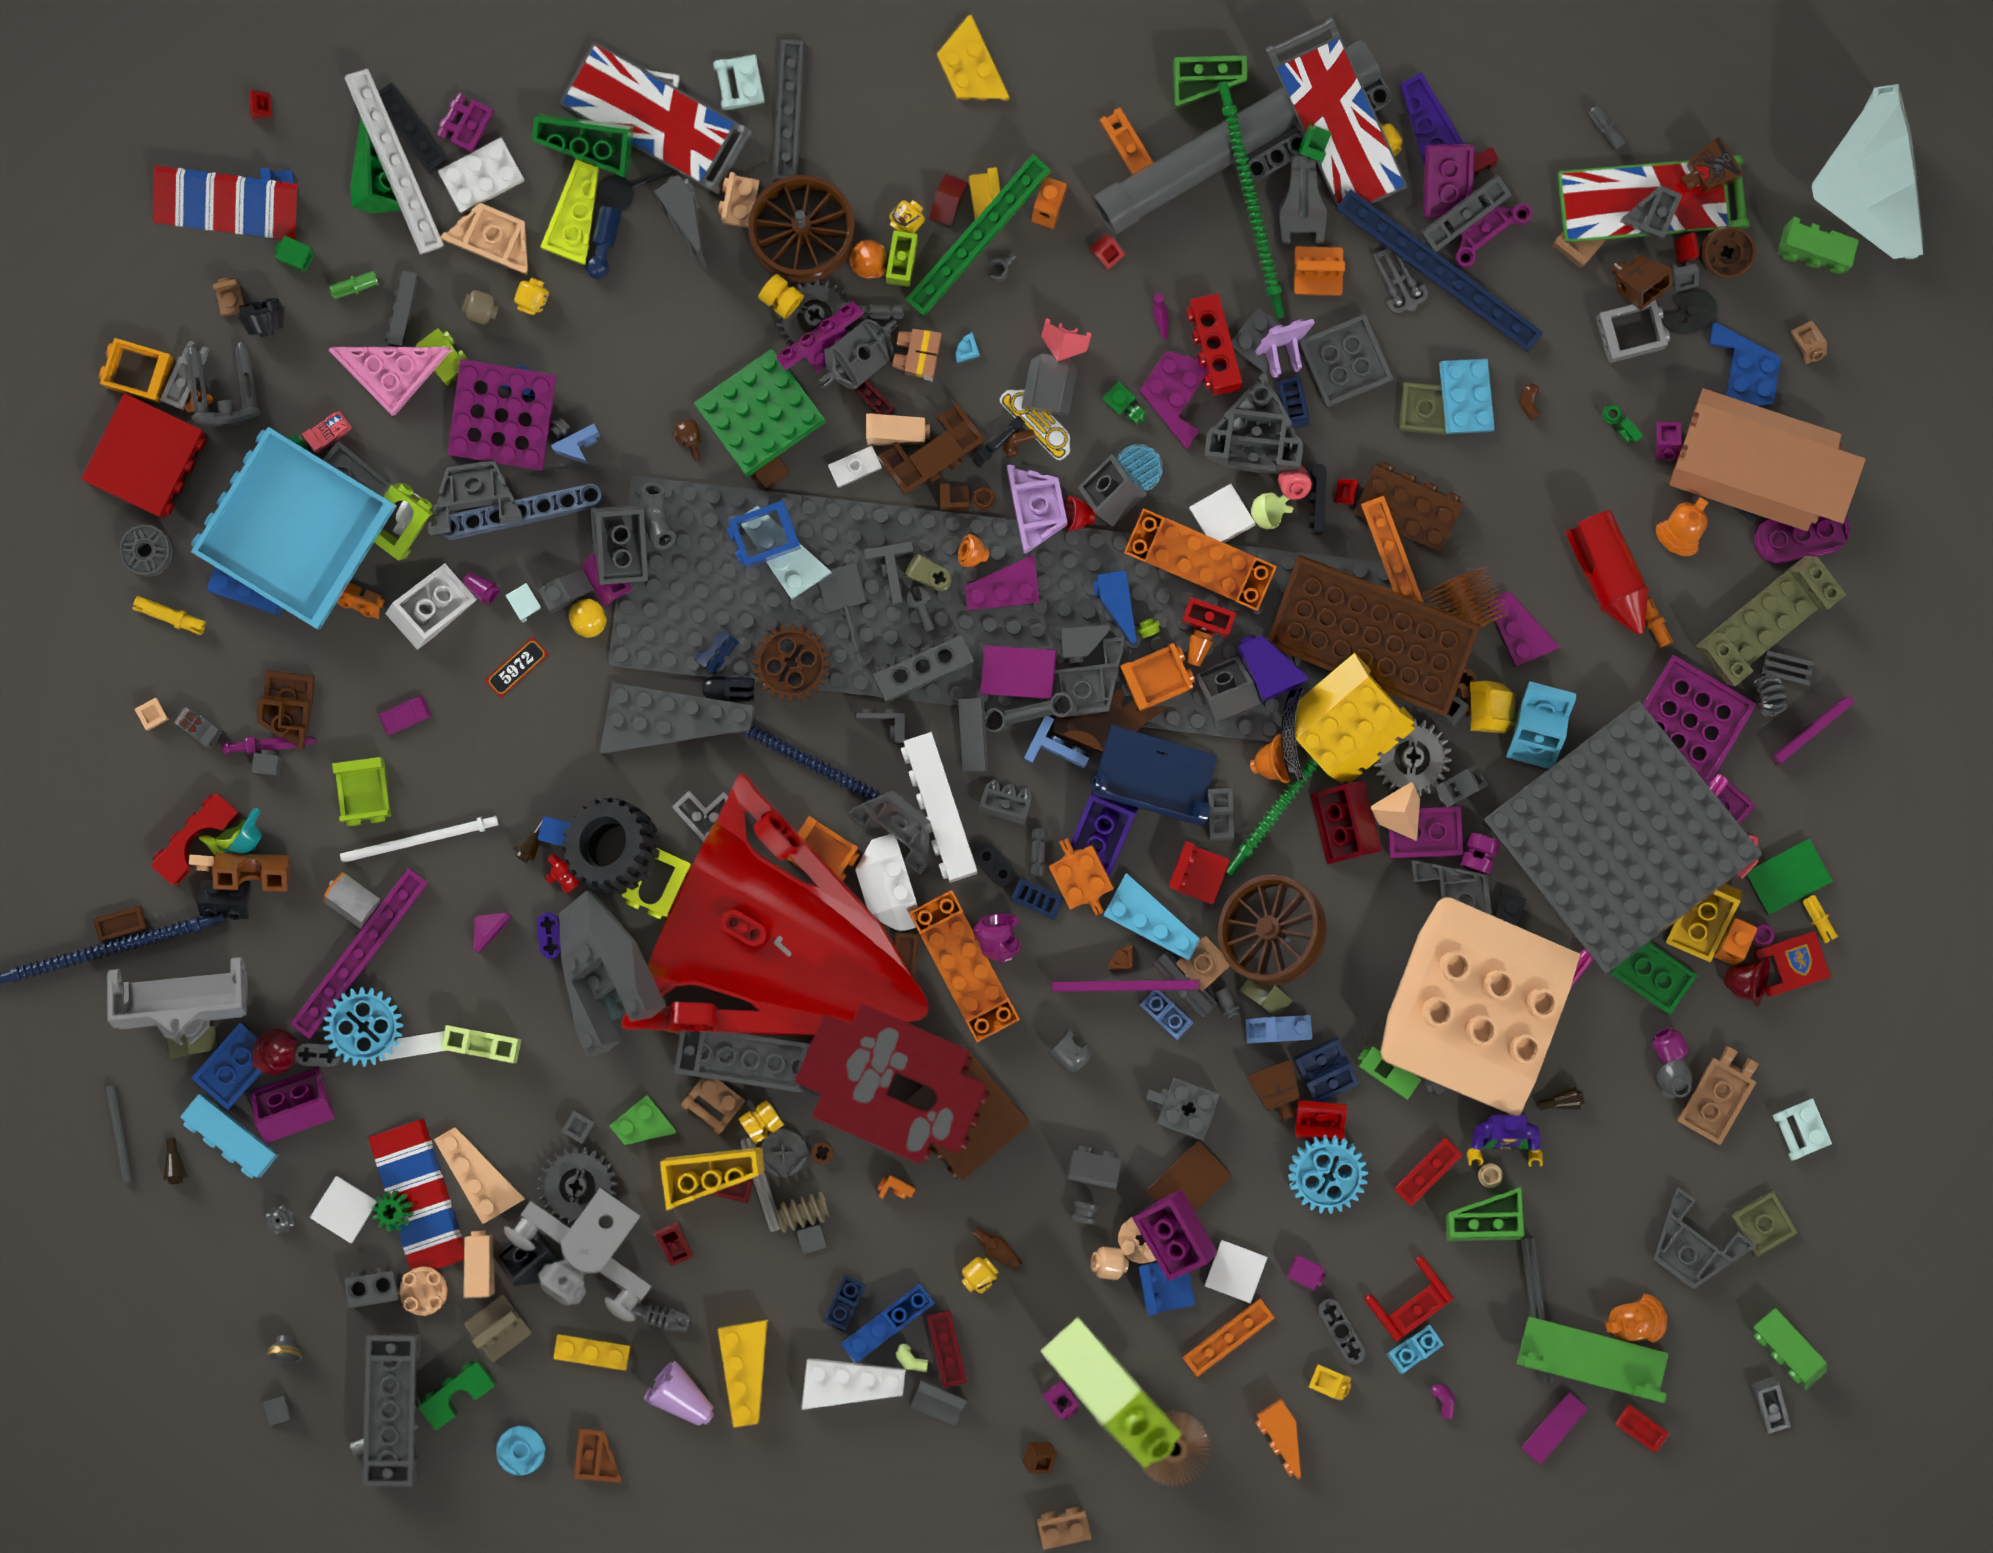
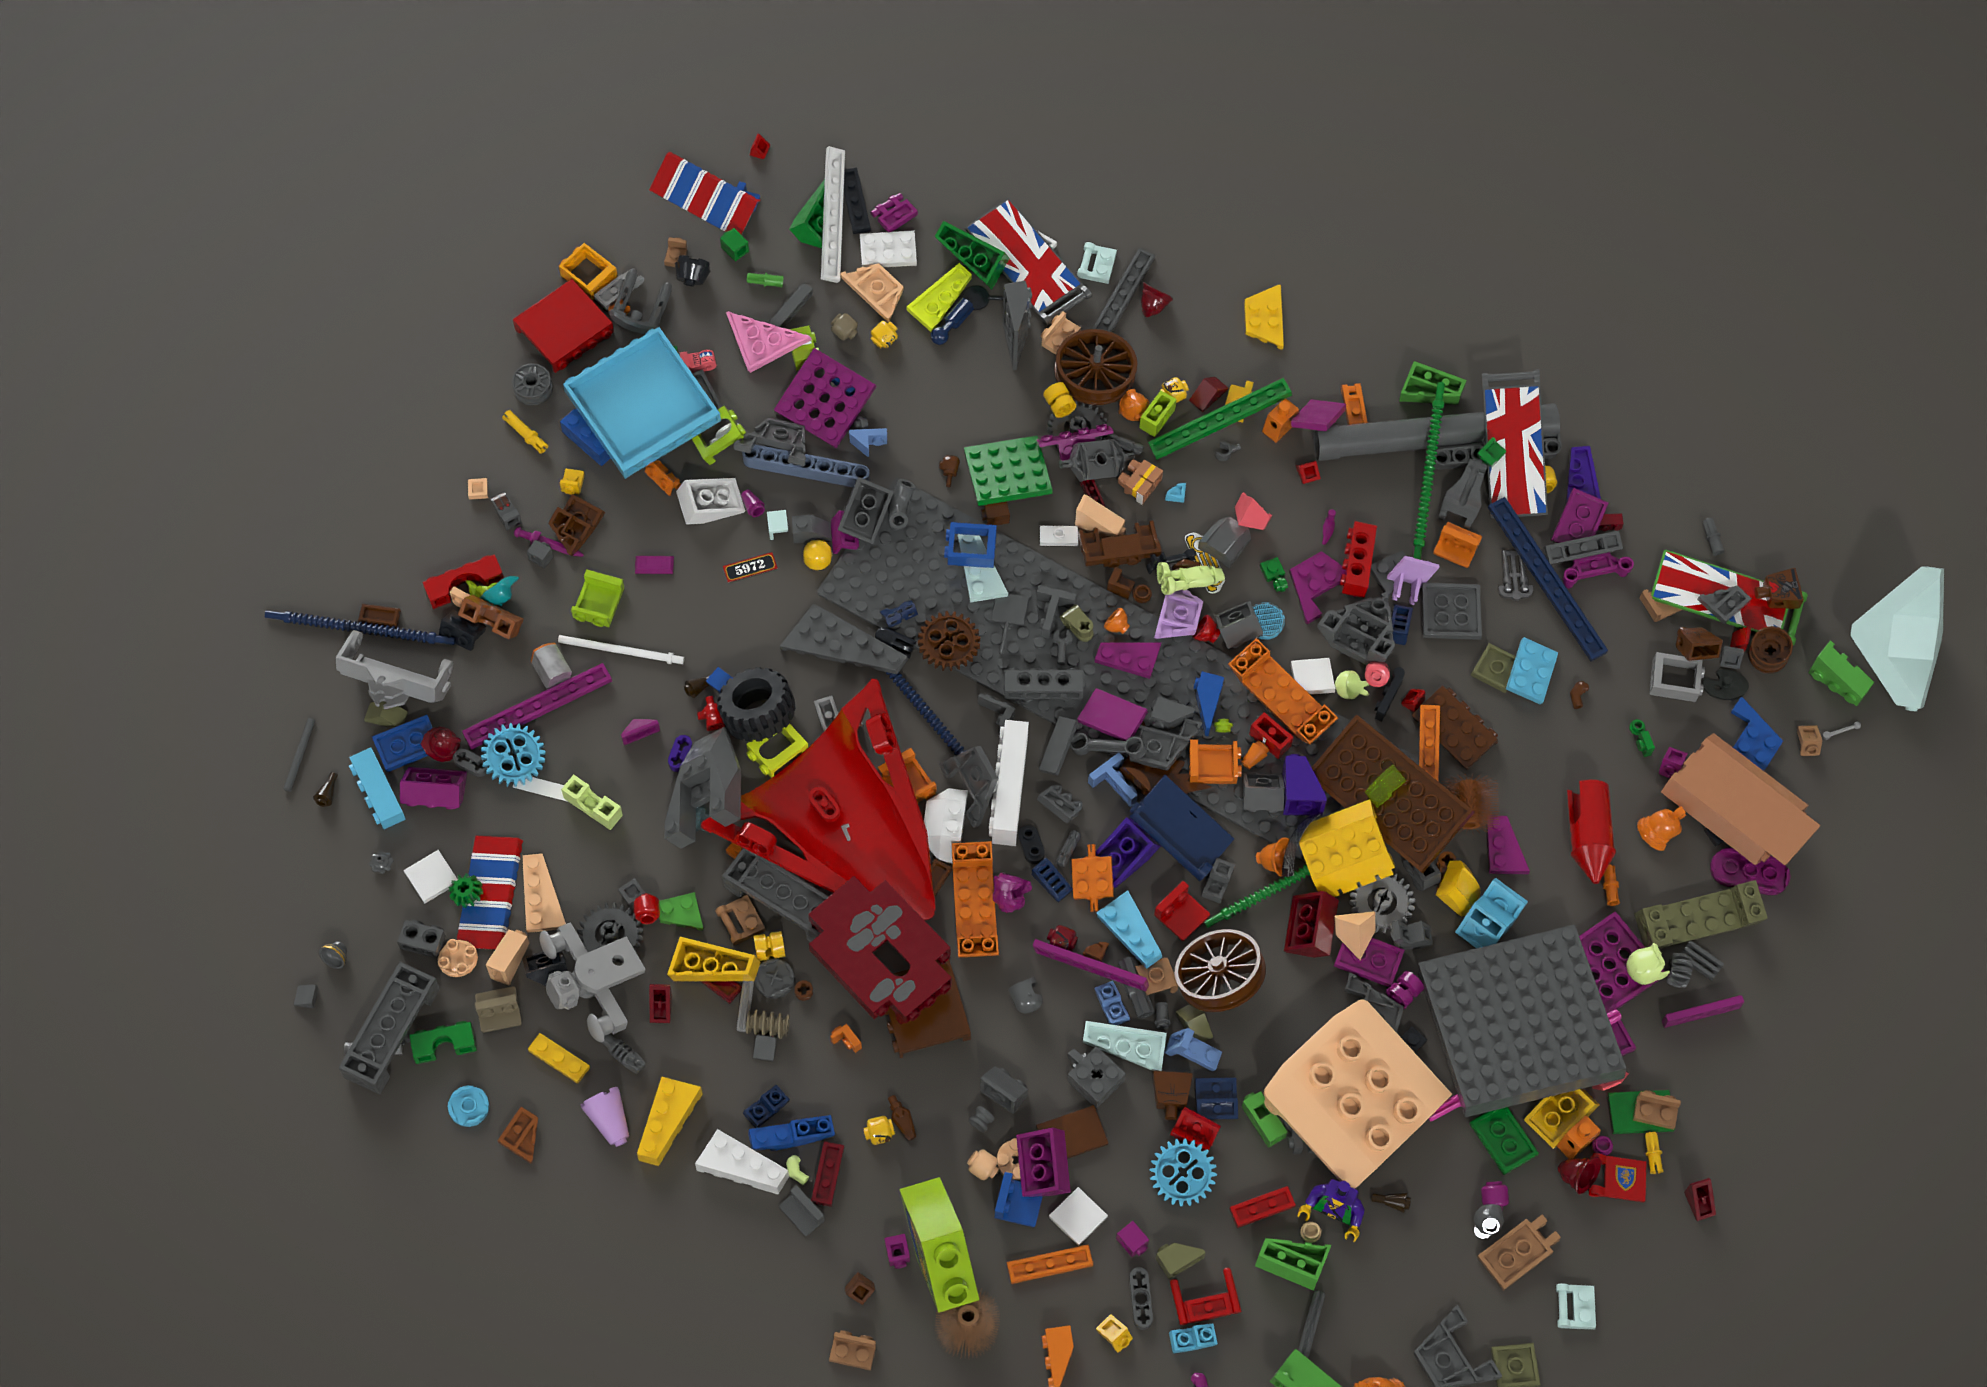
camera: 25 degrees right, 20 degrees down
(257, 653) = (572, 481): none -> yellow bracket
(605, 1141) = (646, 908): none -> red head
(830, 104) = (1153, 301): none -> dark red piece
(1030, 457) = (1187, 577): none -> yellowish green piece
(1080, 965) = (1063, 937): none -> dark red head
(1092, 179) = (1318, 415): none -> magenta tile
(1211, 1051) = (1128, 1043): none -> light aqua wing
(1362, 1271) = (1177, 1258): none -> olive slope
(1366, 632) = (1384, 785): none -> clear neon green slope
(1734, 711) = (1646, 965): none -> yellowish green hair
(1805, 872) = (1656, 1109): none -> medium nougat bracket
(1826, 325) = (1826, 735): none -> light grey hinge
(1890, 950) = (1701, 1199): none -> dark red slope

